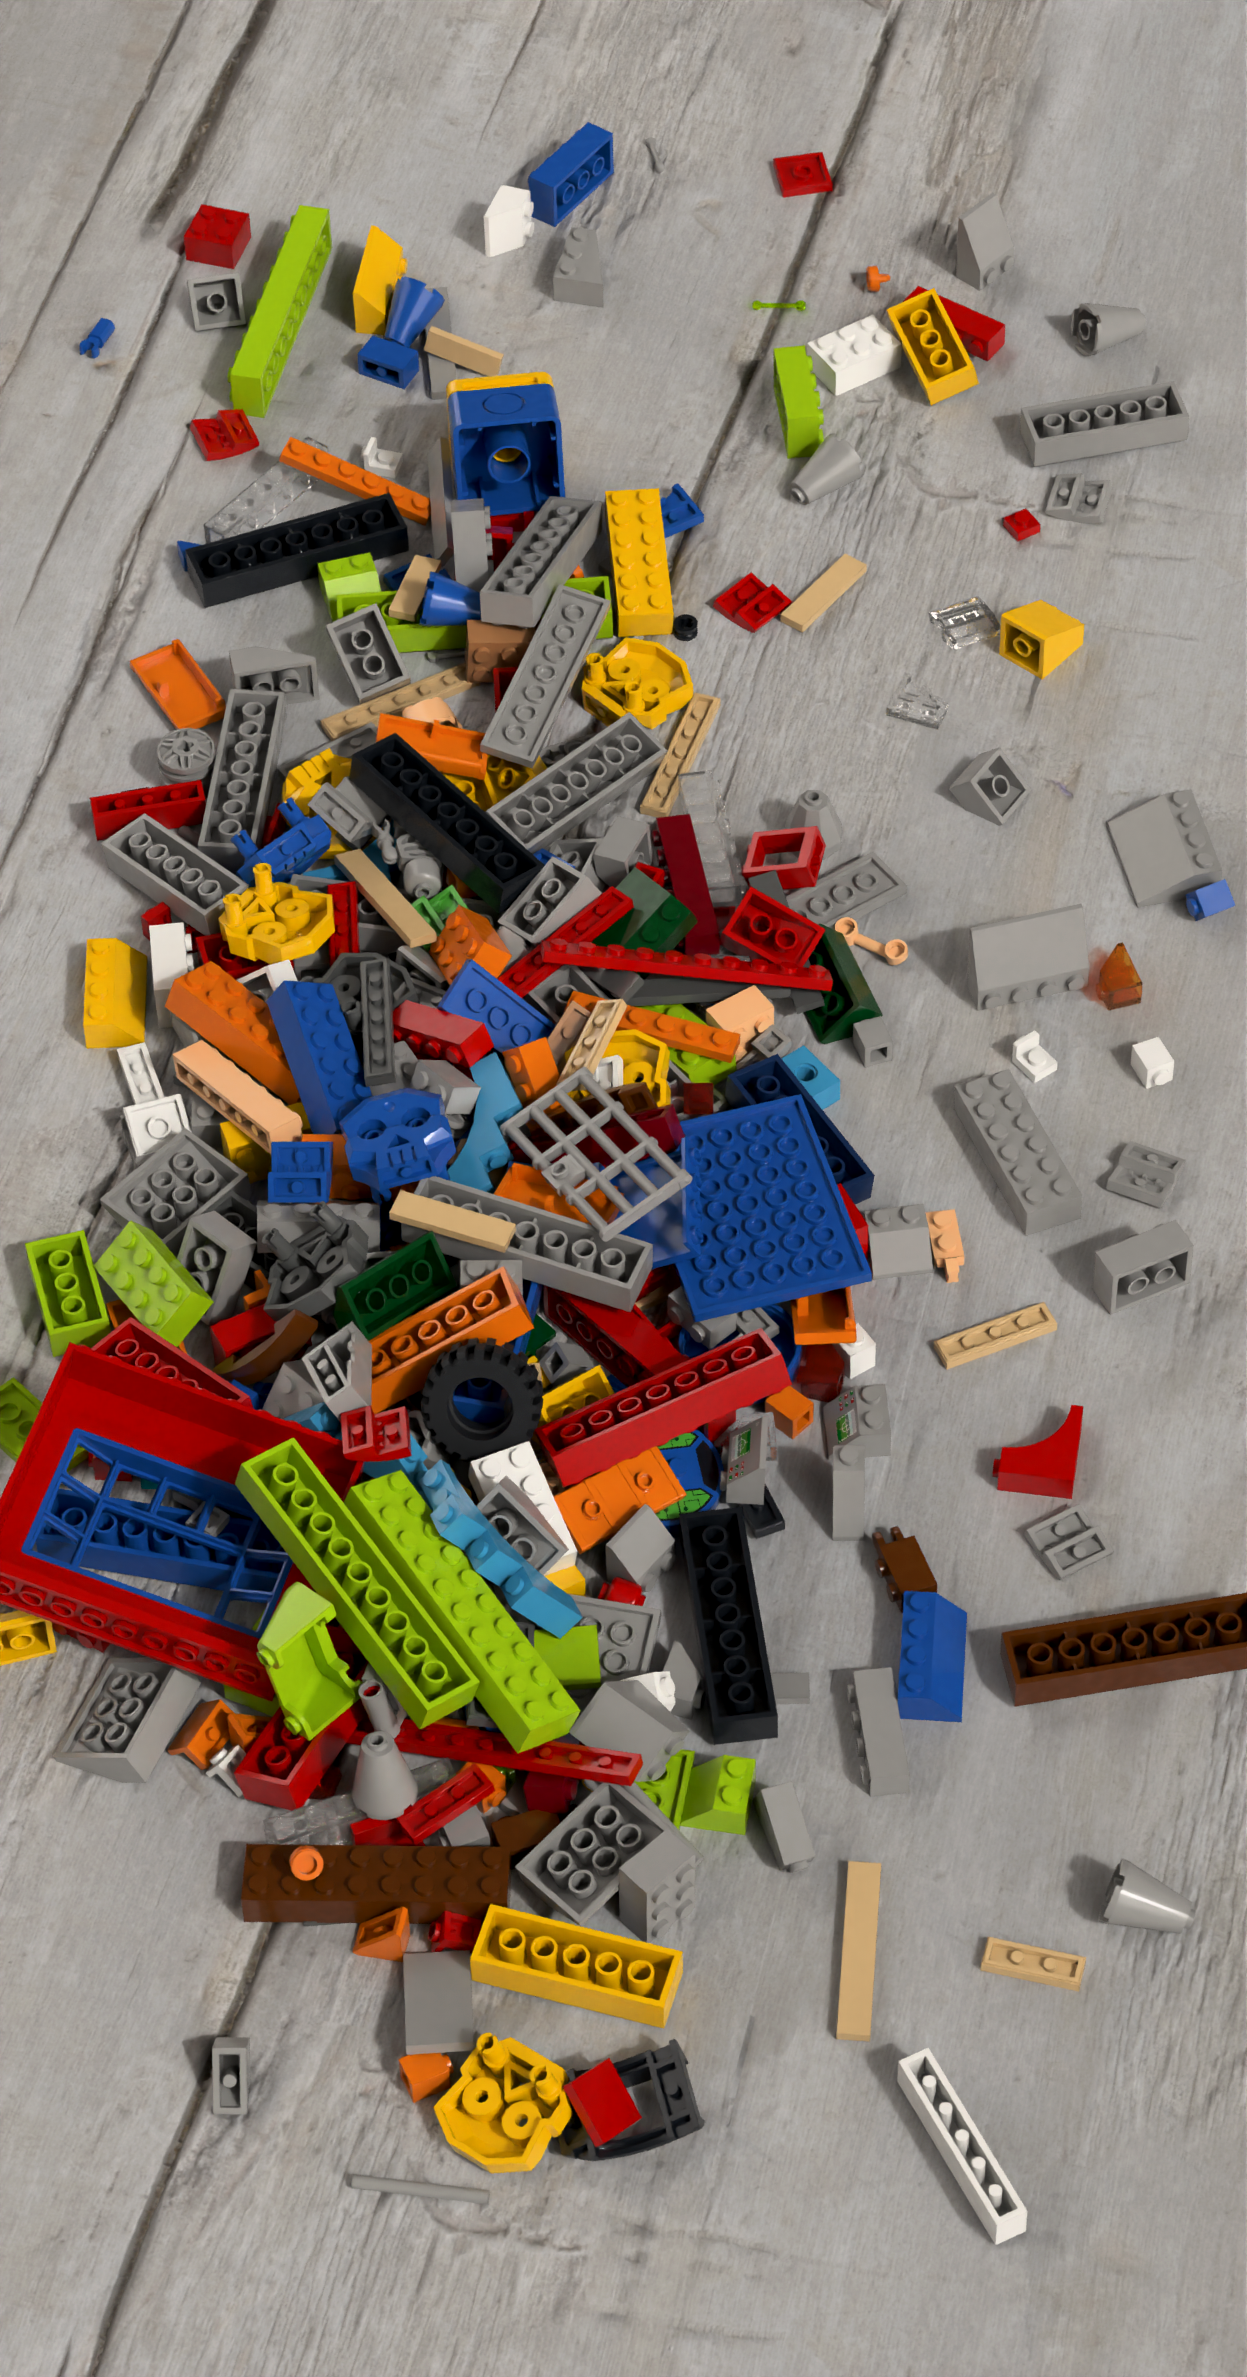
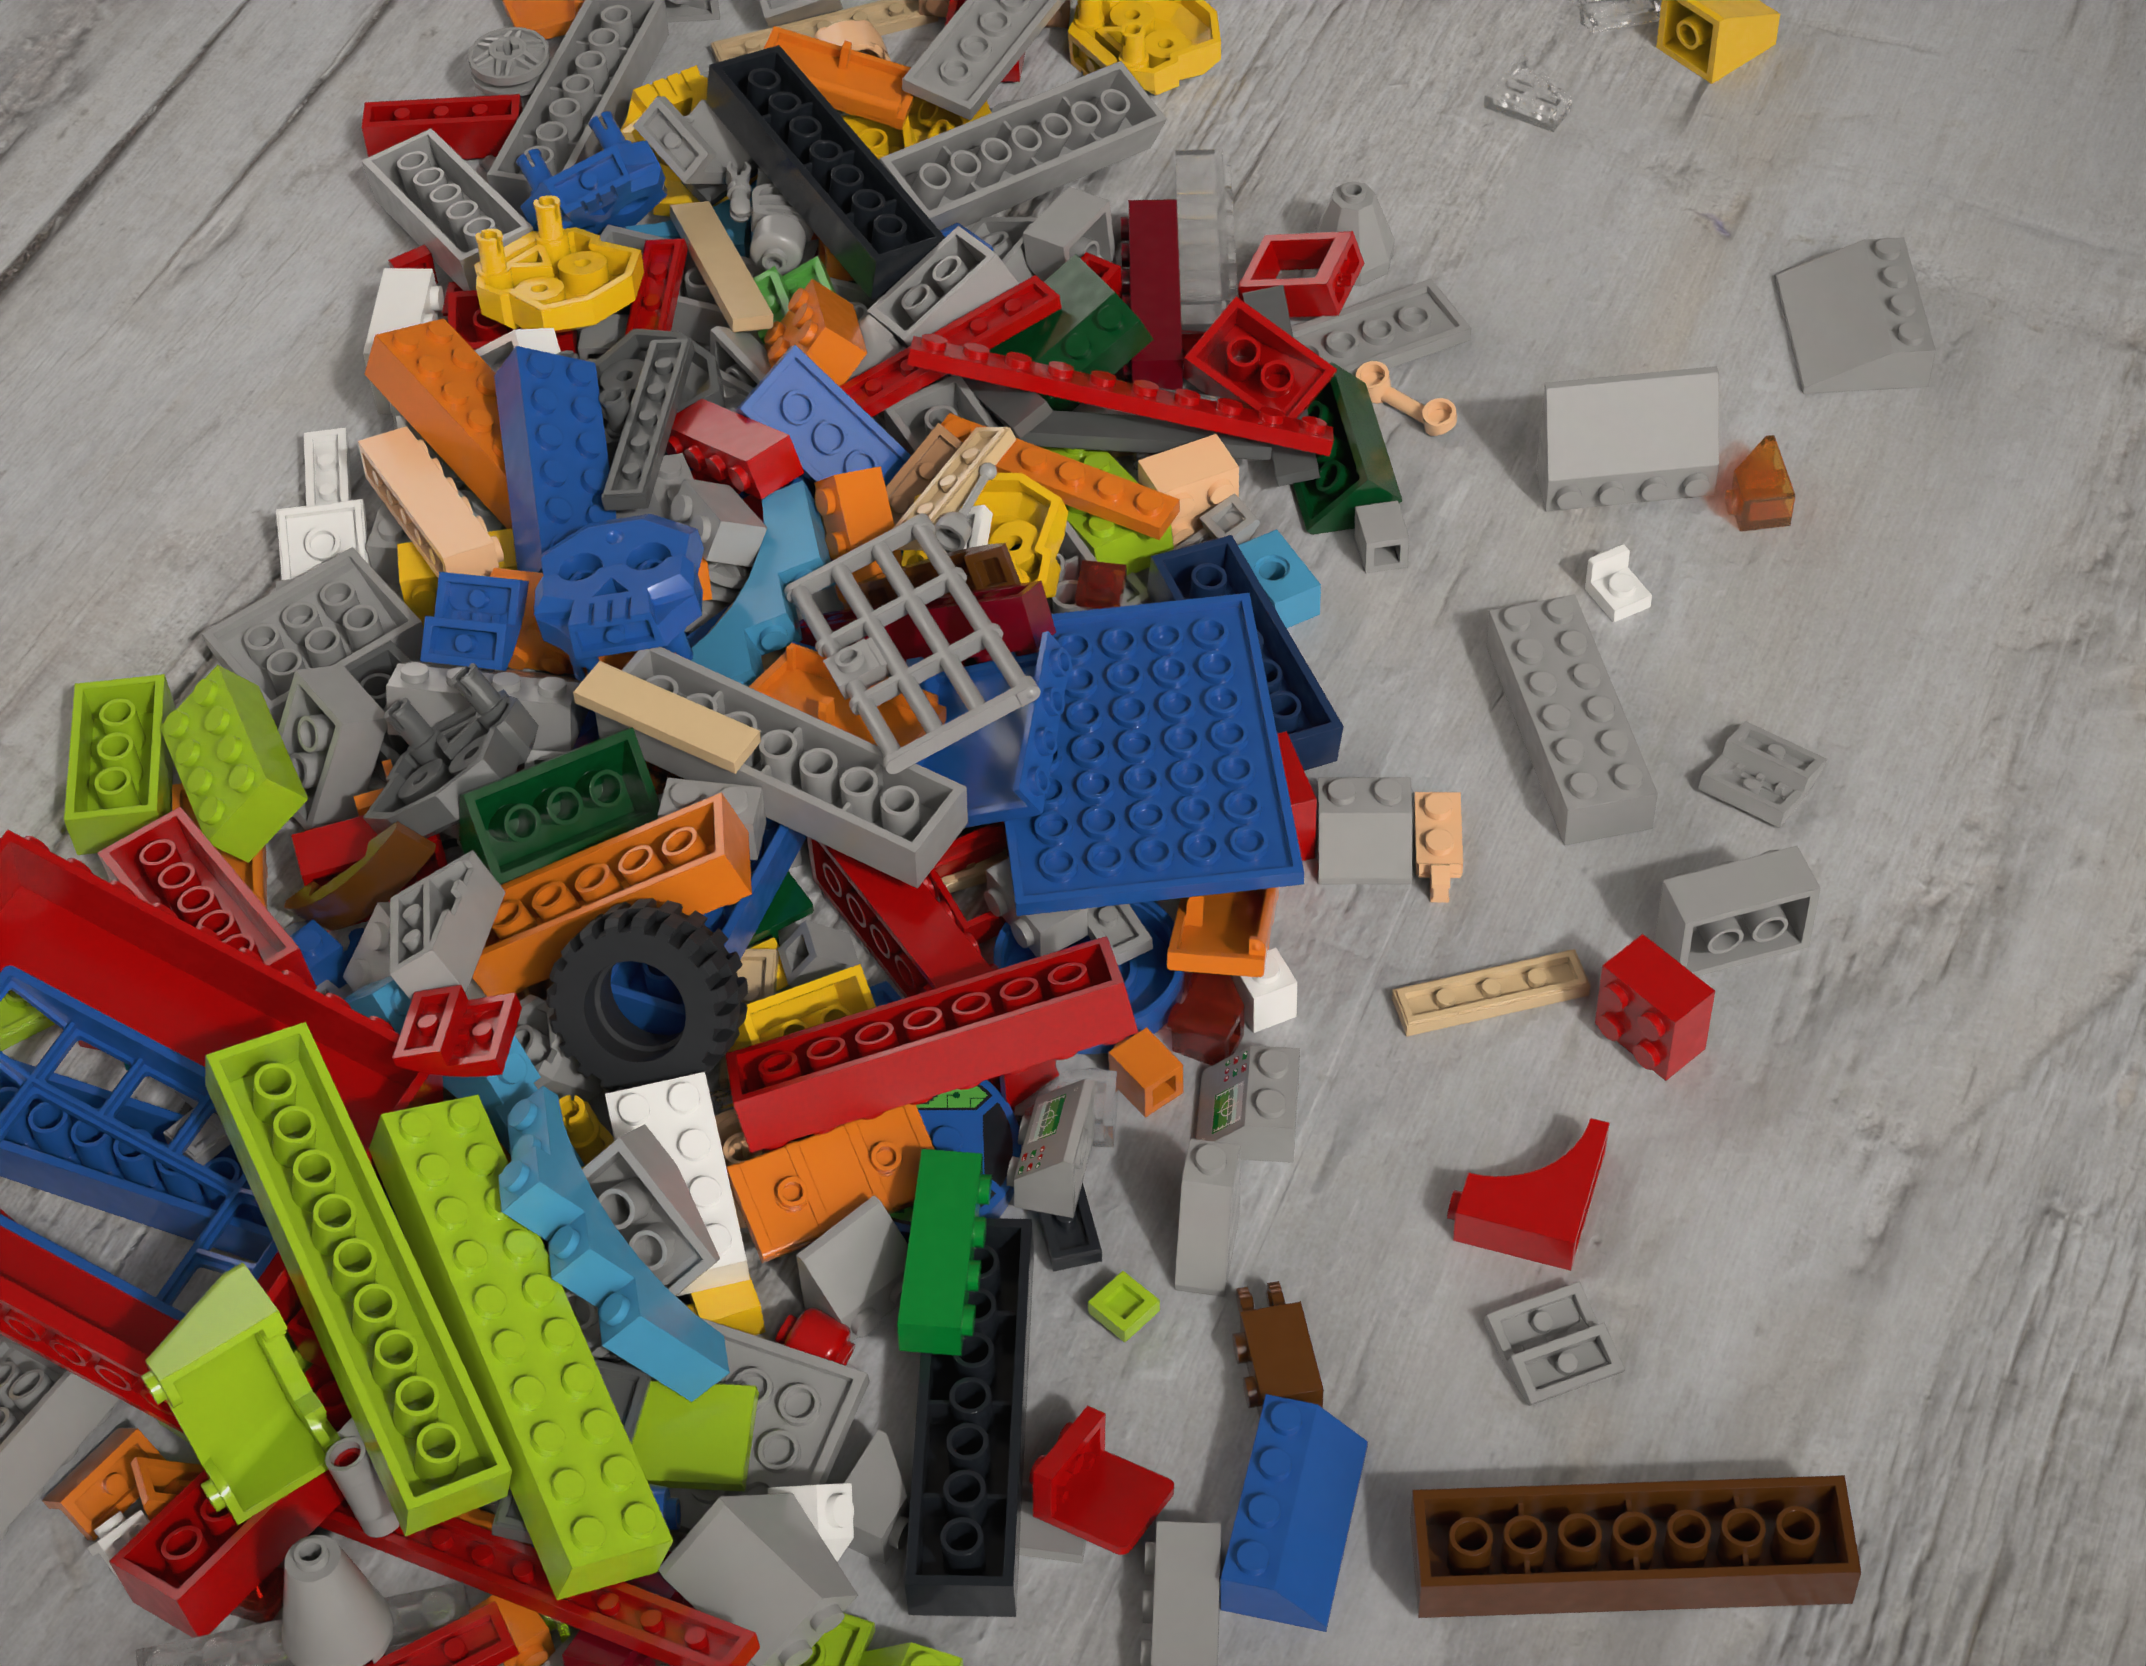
camera: 10 degrees right, 0 degrees up
(114, 994) = (320, 362): yellow slope -> none
(601, 1071) = (953, 528): none -> light grey hinge
(680, 755) = (1189, 129): tan tile -> none
(694, 1531) = (941, 1252): none -> green brick
(804, 1553) = (1123, 1306): none -> lime plate
(811, 1660) = (1094, 1490): none -> red bracket
(991, 787) = (1615, 211): light grey slope -> none
(1100, 1332) = (1654, 1007): none -> red brick
(1152, 1062) = (1795, 610): white brick -> none
(1209, 900) = (1912, 391): brick -> none

